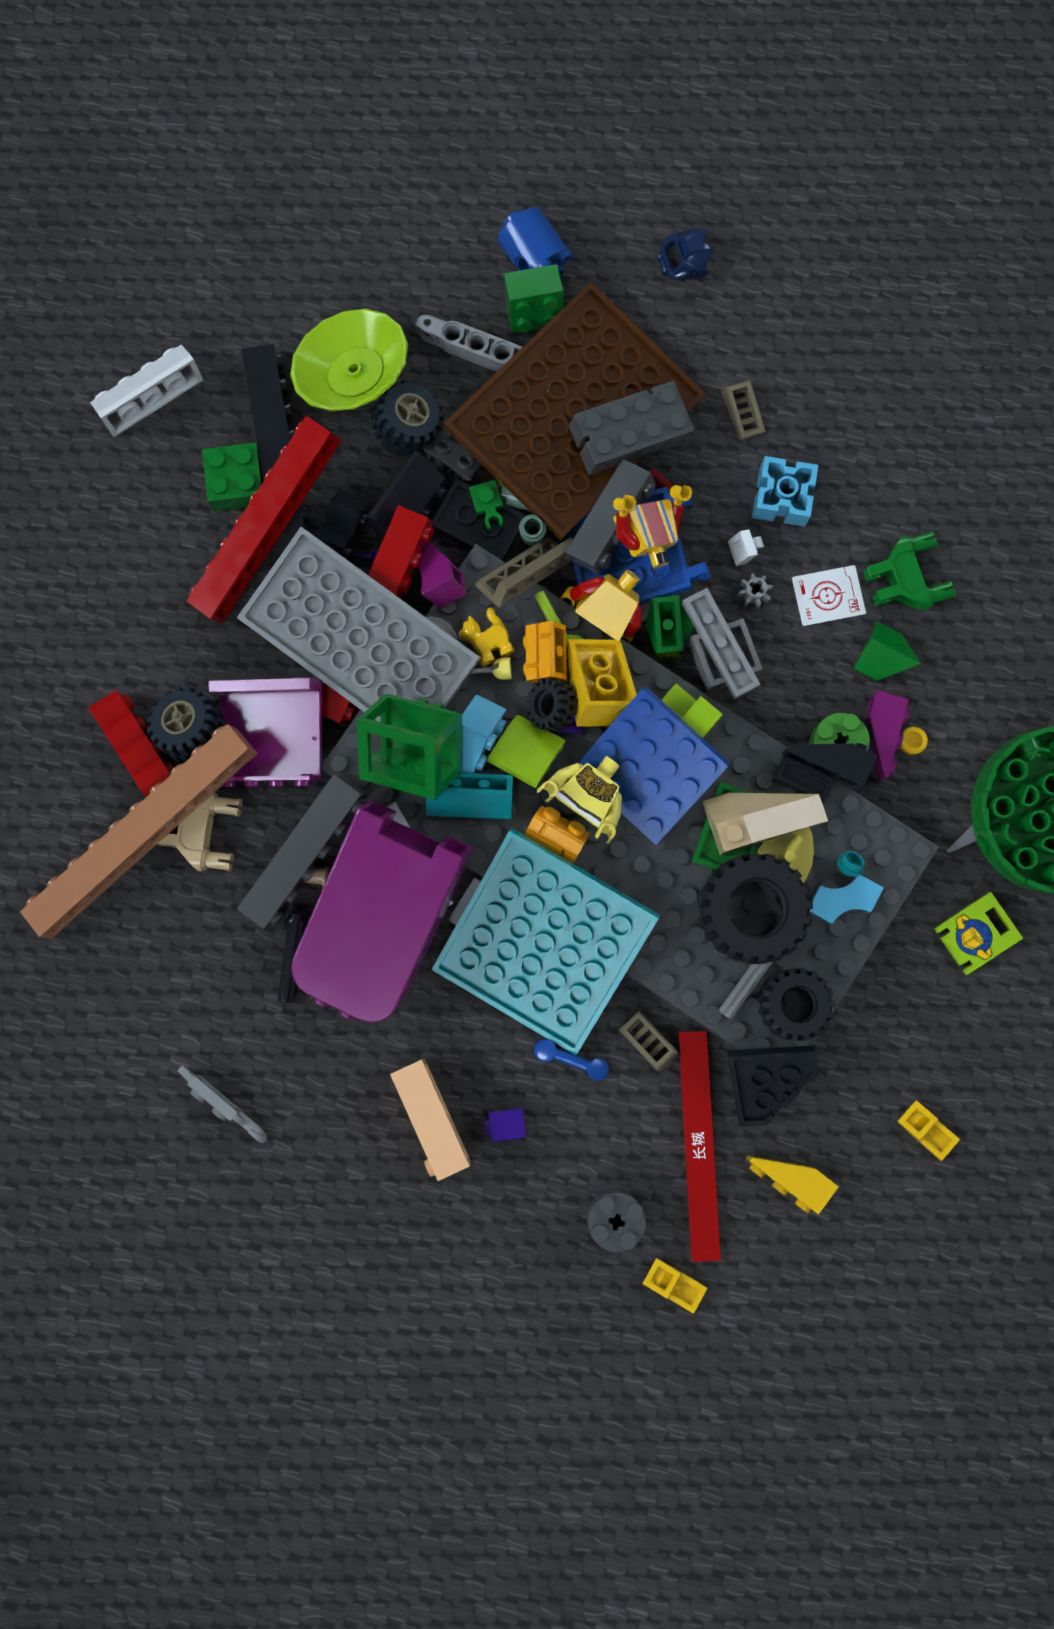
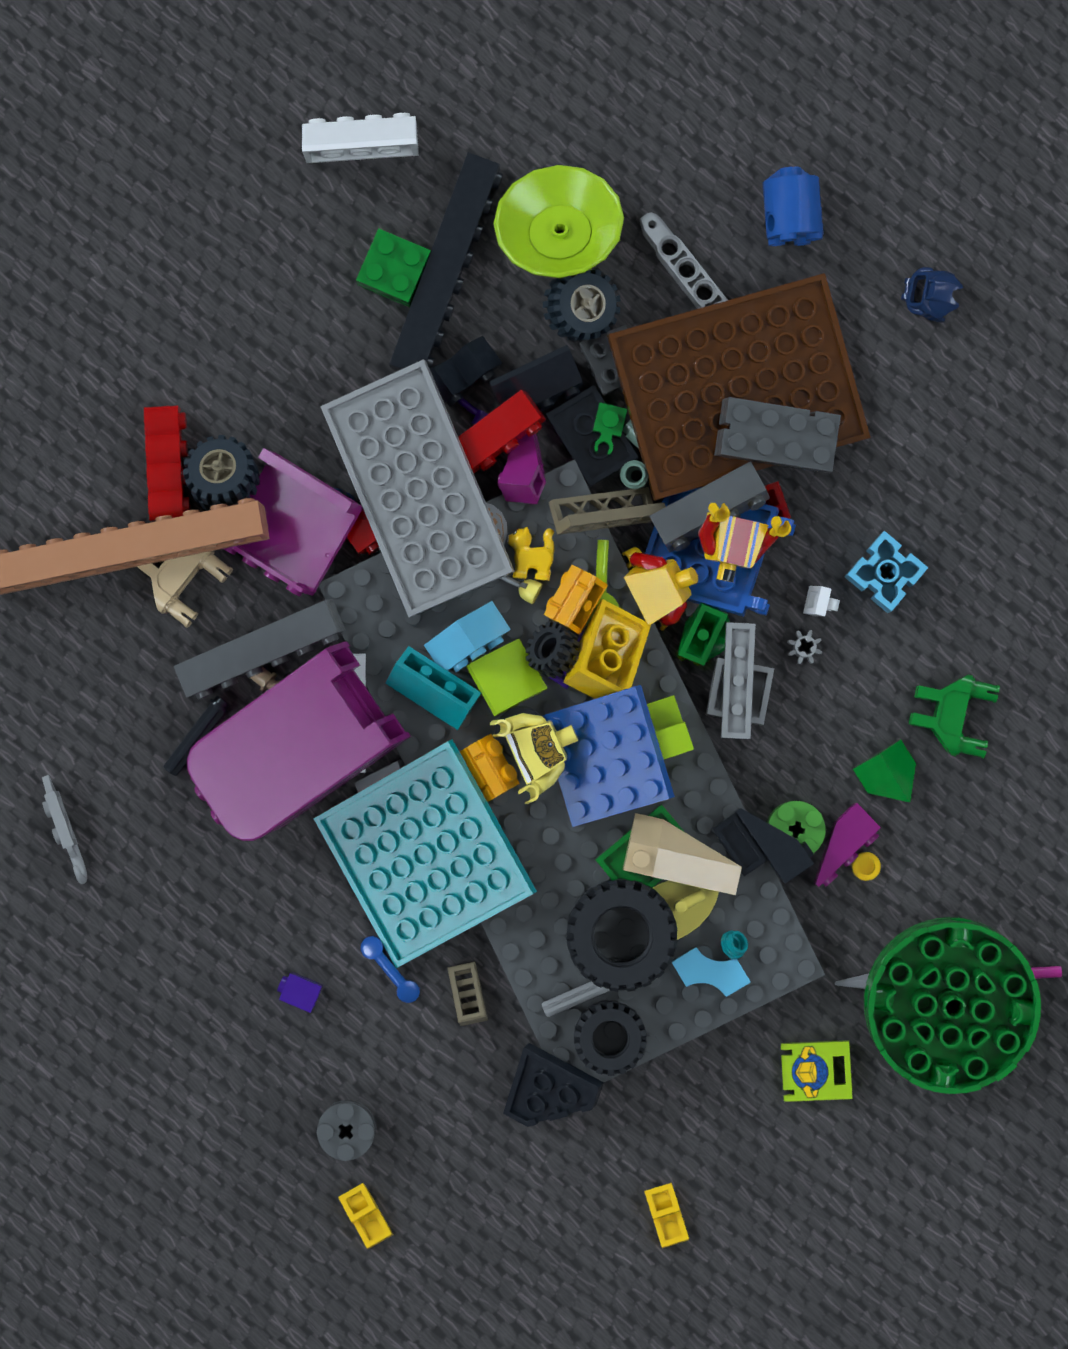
camera: 35 degrees right, 5 degrees up
(263, 520) = (395, 328): red brick -> none
(417, 748) = (409, 622): green piece -> none
(431, 1120) = (236, 949): light nougat brick -> none
(532, 297) = (762, 259): green brick -> none
(699, 1146) = (458, 1109): red tile -> none
(731, 404) = (887, 470): dark tan slope -> none
(802, 1181) = (527, 1191): yellow slope -> none
(828, 595) = (871, 689): white sticker -> none

